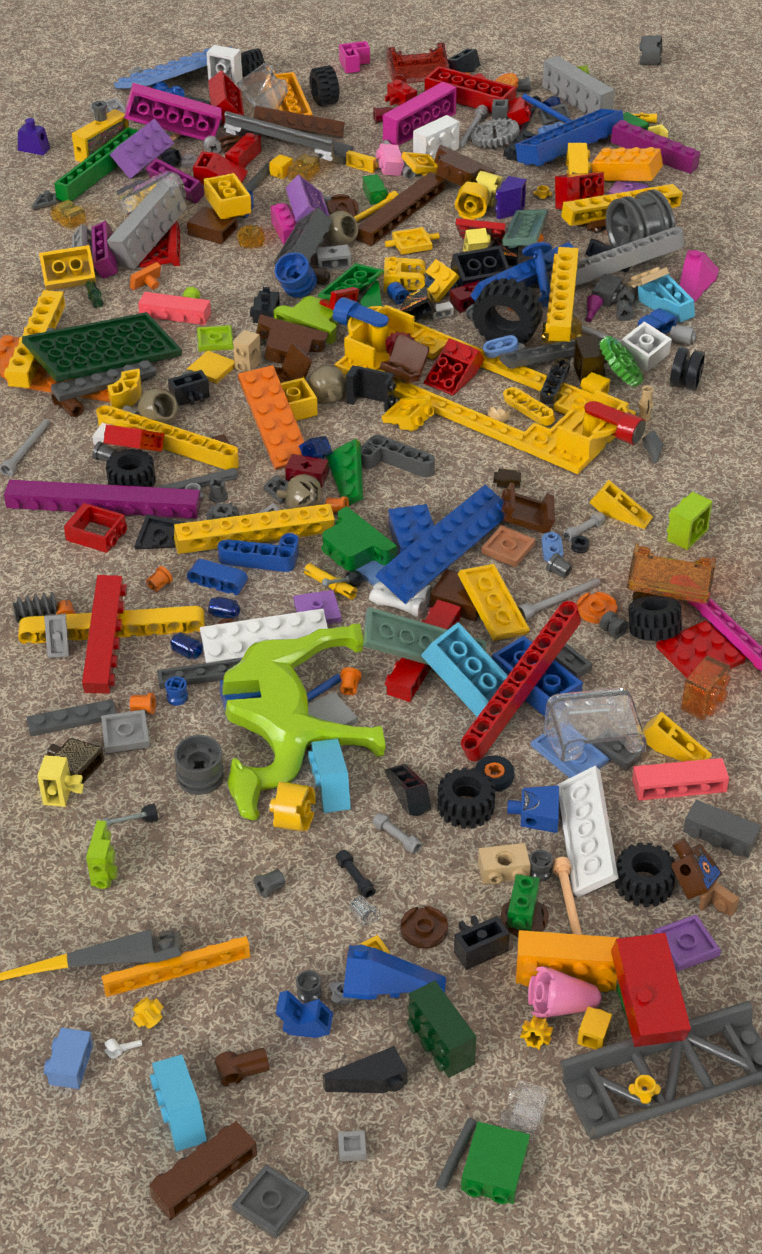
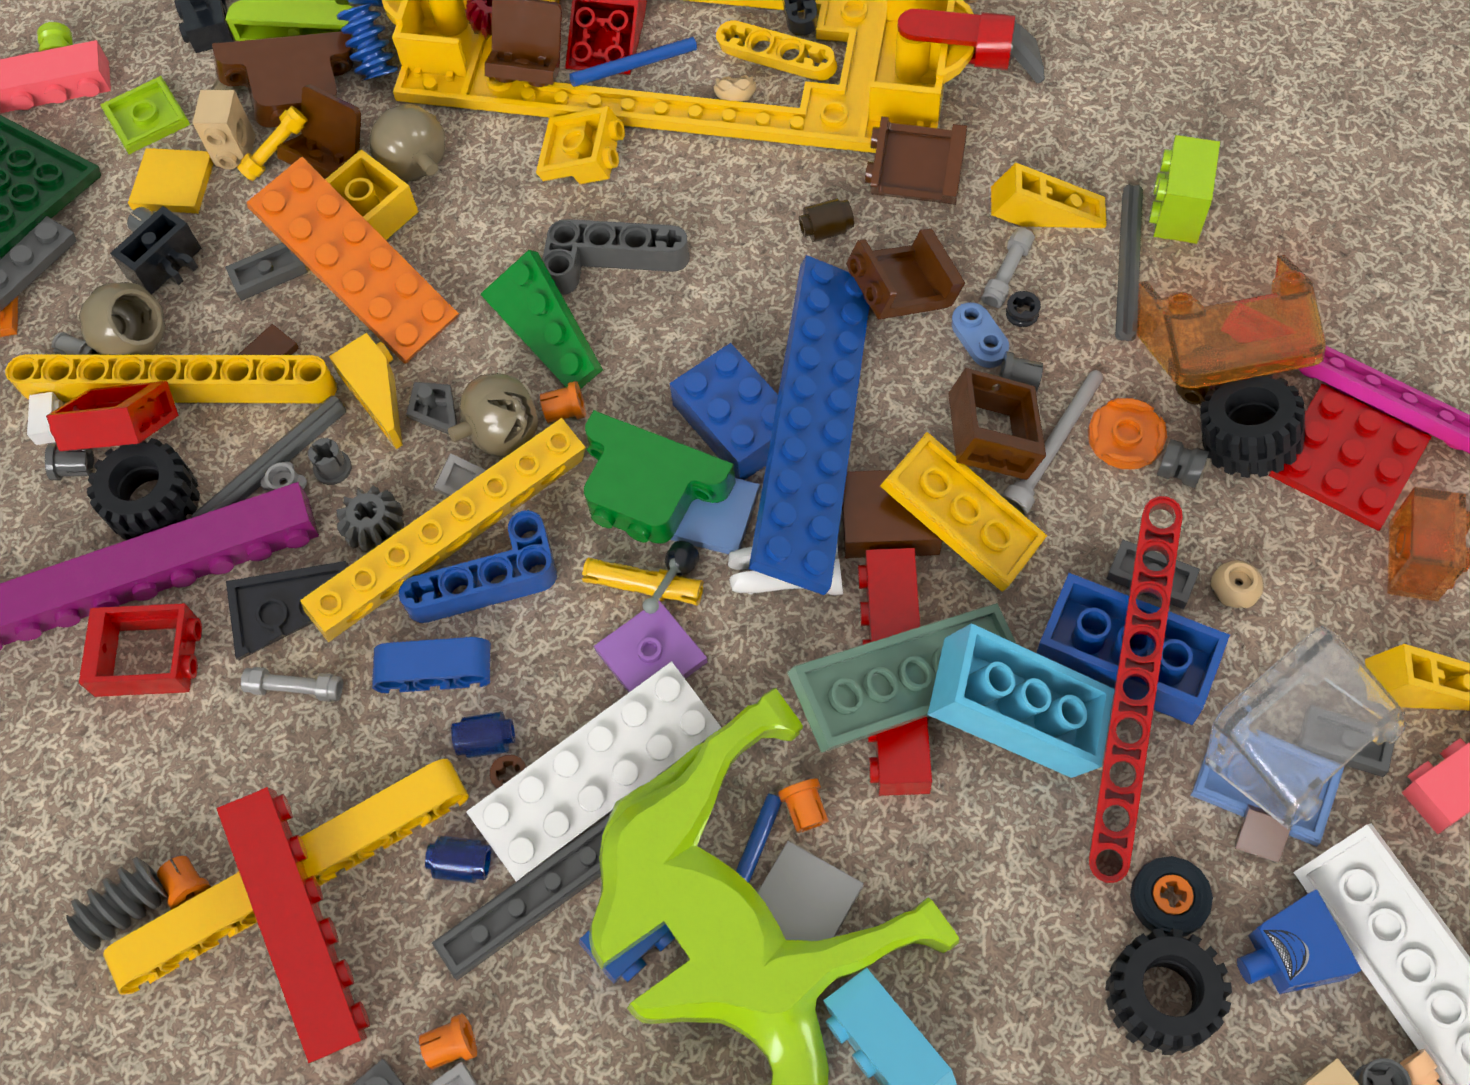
camera: 20 degrees left, 20 degrees up
(56, 635) = (197, 962): light grey plate -> none
(126, 389) = (40, 304): yellow brick -> none
(139, 557) = (325, 687): none -> light grey bar
(159, 579) = (324, 719): orange bush -> none
(176, 691) = (504, 988): blue wheel -> none
(233, 413) = (264, 270): none -> dark grey plate
(255, 468) = (369, 377): none -> yellow slope
(278, 358) = (253, 165): none -> yellow bar
(307, 465) = (468, 348): dark red brick -> none
(316, 447) = (463, 298): clear blue brick -> none
(332, 339) = (366, 41): none -> blue piece
(370, 385) = (489, 115): black panel -> none
(409, 789) = (1048, 1013): black slope -> none
(456, 389) = (633, 61): none -> blue bar
(508, 546) = (908, 366): nougat plate -> none
(523, 582) = (991, 450): none -> reddish brown window
(552, 766) = (1261, 834): none -> tile
(565, 469) = (916, 161): none -> reddish brown panel
(608, 678) = (1234, 595): none -> tan plate
(648, 541) = (1129, 263): none -> dark grey axle

